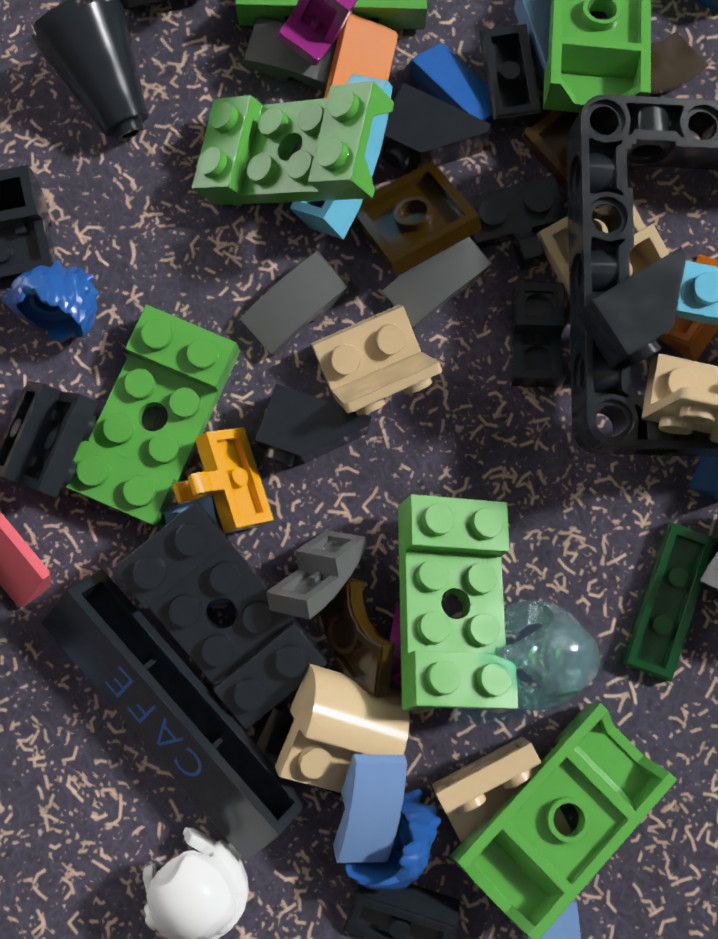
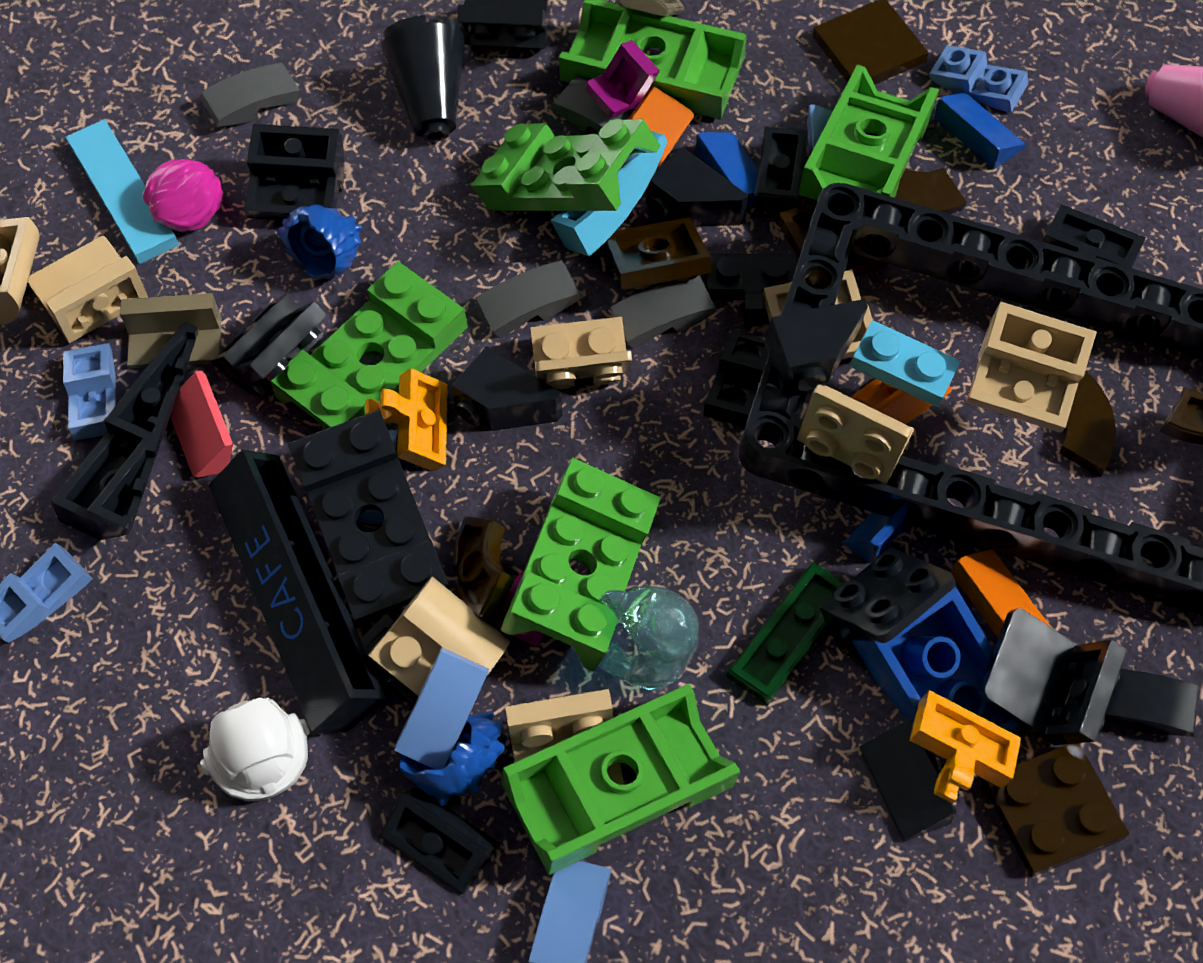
camera: 20 degrees right, 20 degrees down
(322, 571) = (468, 507): dark grey slope -> none

